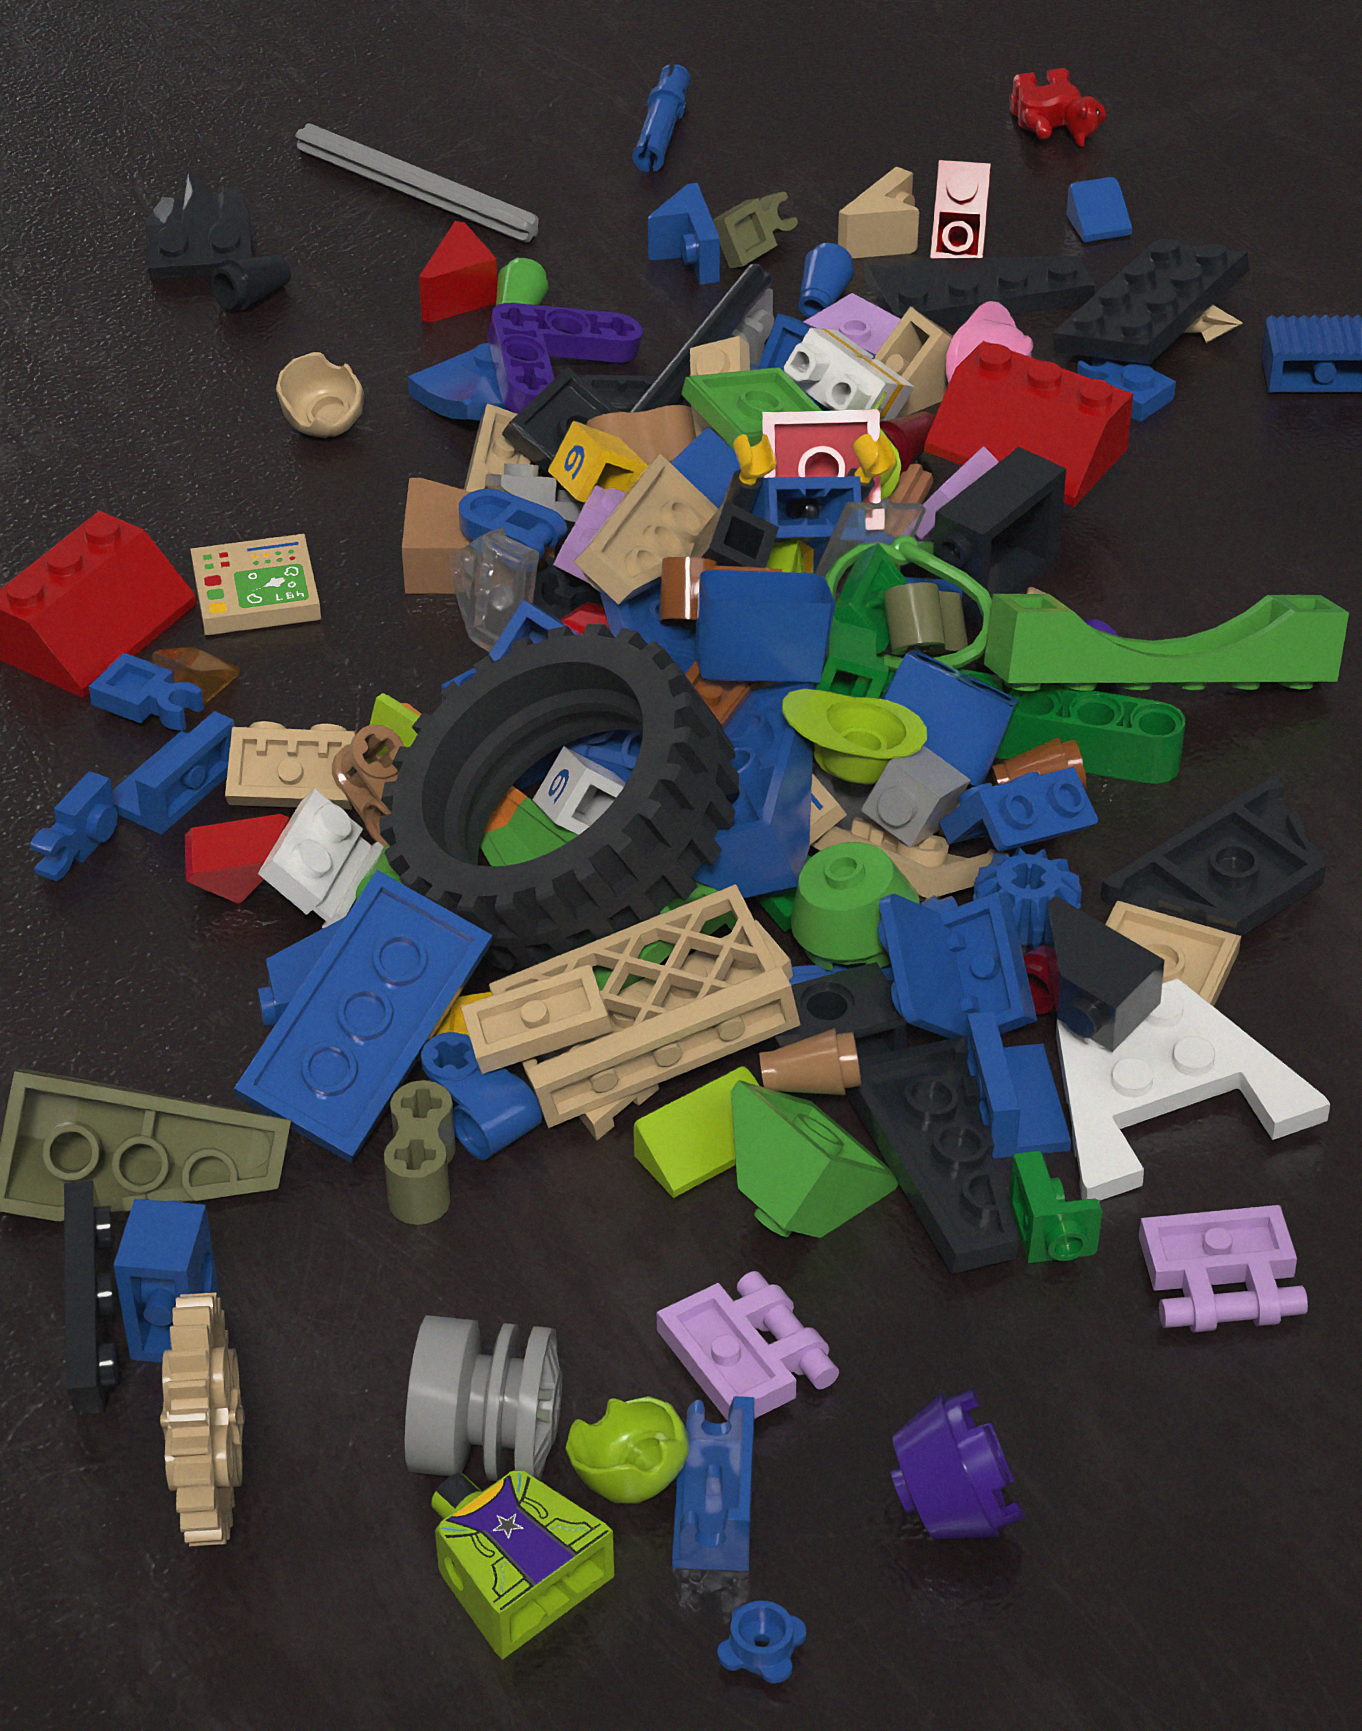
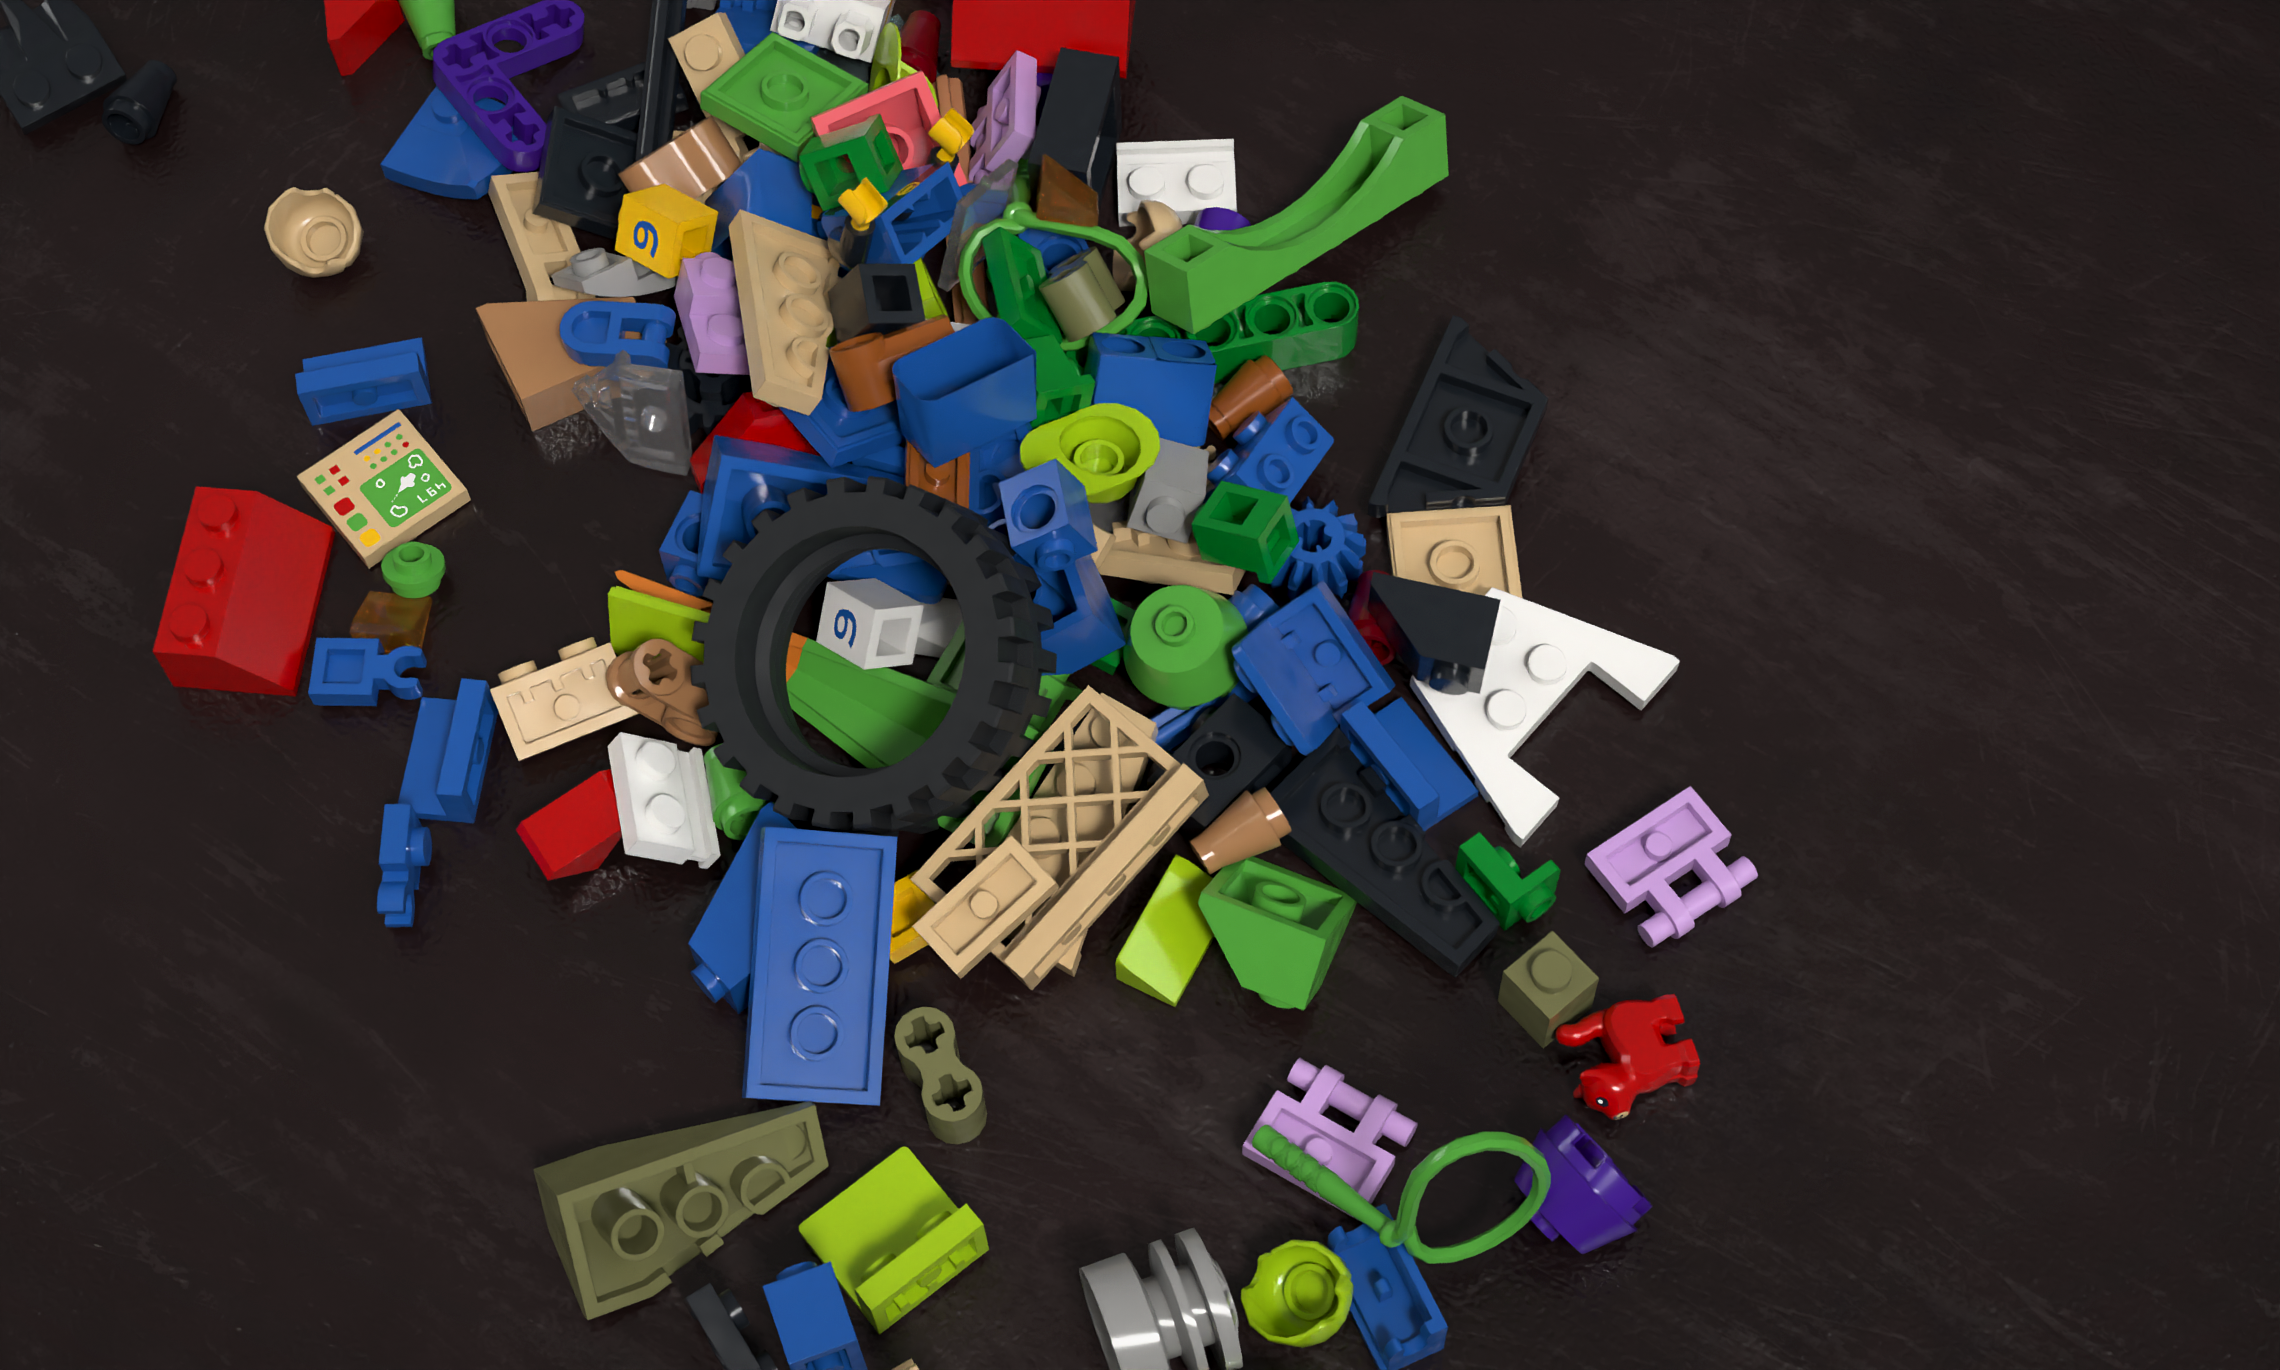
camera: 25 degrees left, 20 degrees up
(237, 640) = (413, 569): none -> bright green plate
(289, 508) = (364, 381): none -> blue panel
(293, 1261) = (894, 1238): none -> lime bracket
(487, 1107) = (975, 1004): blue piece -> none
(744, 1408) = (1403, 1229): none -> bright green piece
(774, 736) = (1048, 517): none -> blue brick
(793, 442) = (870, 153): none -> green brick
(949, 540) = (1064, 196): none -> clear orange slope
(963, 838) = (1246, 529): none -> green brick
(1032, 1308) = (1547, 988): none -> olive brick
(1093, 596) = (1177, 173): none -> white plate
(1101, 1399) = (1637, 1051): none -> red animal

